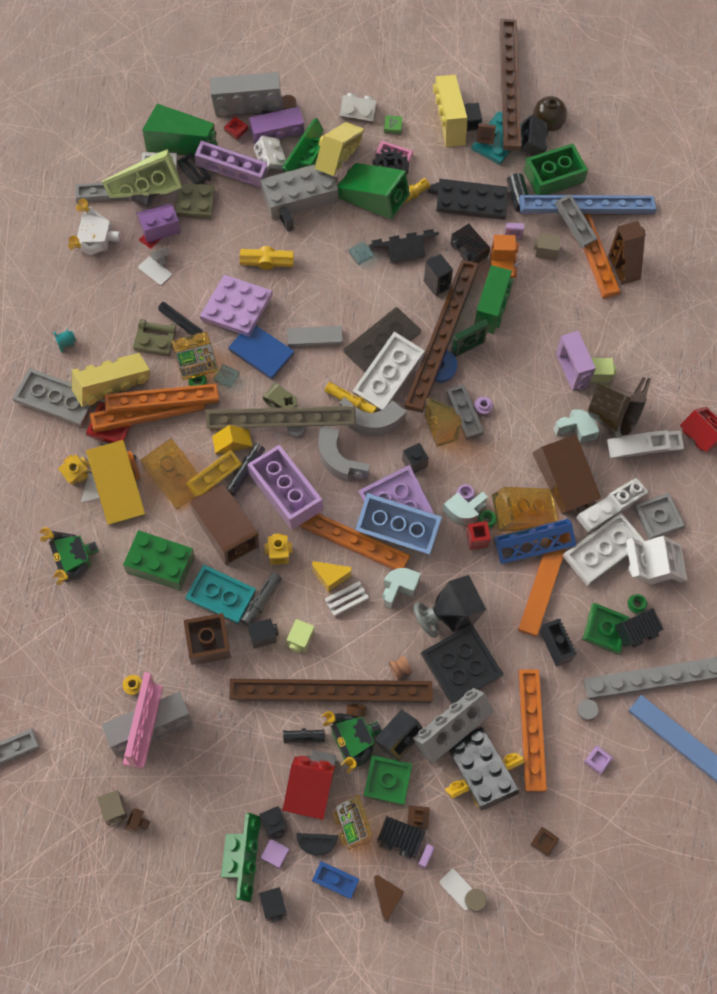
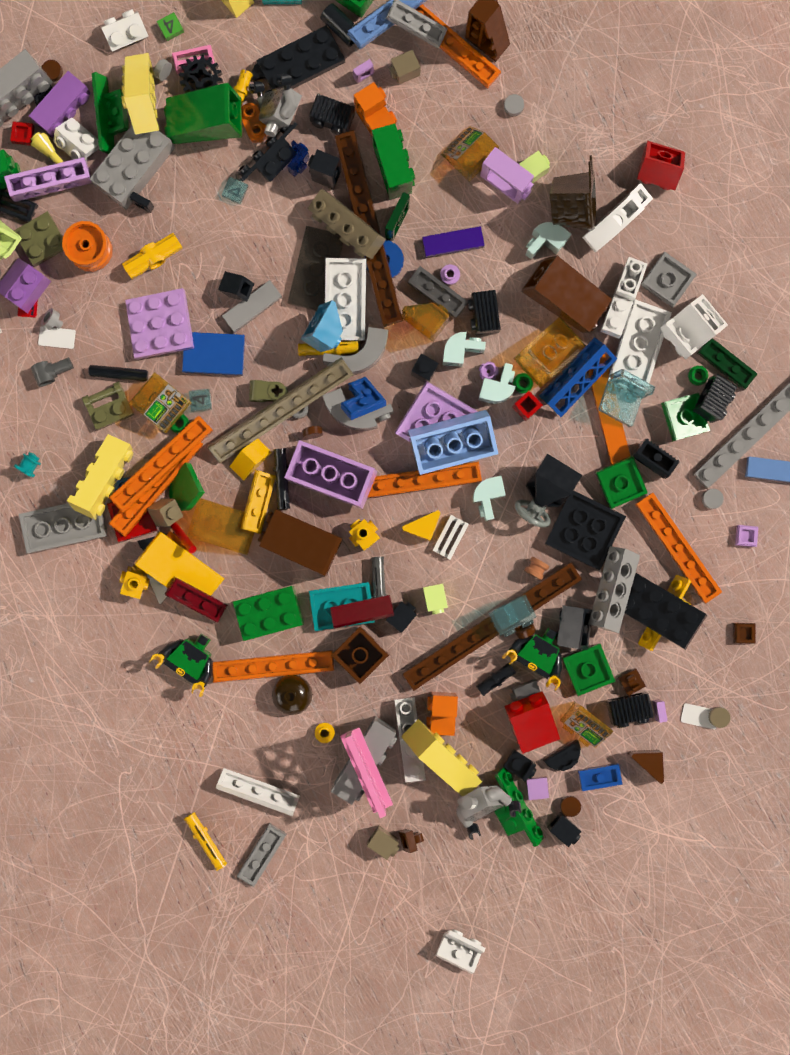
camera: 35 degrees left, 20 degrees up
(43, 695) = (257, 792): none -> white plate
(108, 949) = (460, 950): none -> white bracket
(111, 512) = (196, 599): none -> dark red tile
(128, 286) = (47, 372): none -> dark grey pin
(129, 637) = (292, 694): none -> dark brown cylinder
(131, 605) = (273, 666): none -> orange tile
(137, 433) = (165, 512): none -> dark tan brick
(137, 456) = (183, 537): none -> red bar
(166, 427) = (186, 488): none -> green tile
(197, 736) = (406, 717): none -> white slope
(211, 766) = (442, 758): none -> light yellow wedge
(217, 826) = (481, 803): none -> light grey torso
(224, 222) = (87, 246): none -> orange wheel
(233, 604) = (362, 611): none -> dark red tile
(241, 731) = (443, 713): none -> orange brick
(245, 142) = (43, 144): none -> light yellow cone
(292, 889) = (570, 806): none -> reddish brown tile
(294, 450) = (312, 432): none -> reddish brown tile
(312, 313) = (236, 286): none -> black brick
(352, 449) = (365, 401): none -> blue tile
(353, 688) = (512, 615): none -> clear light blue brick
(355, 377) = (324, 328): none -> dark azure slope
(366, 146) = (162, 70): none -> light grey tile
(407, 216) = (252, 122): none -> orange plate
(419, 260) = (298, 163): none -> clear blue bracket
(427, 320) = (346, 224): none -> dark tan brick
(434, 212) = (276, 104): none -> light grey torso
(454, 458) = (456, 347): none -> light aqua brick
(492, 448) = (485, 312): none -> black brick
(502, 385) = (453, 242): none -> dark purple tile
(517, 645) = (621, 482): none -> green plate
(553, 328) = (469, 152): none -> clear yellow slope
(563, 578) = (623, 396): none -> clear light blue bracket
(615, 320) = (514, 105): none -> light grey tile
(668, 610) = (727, 363): none -> dark green tile

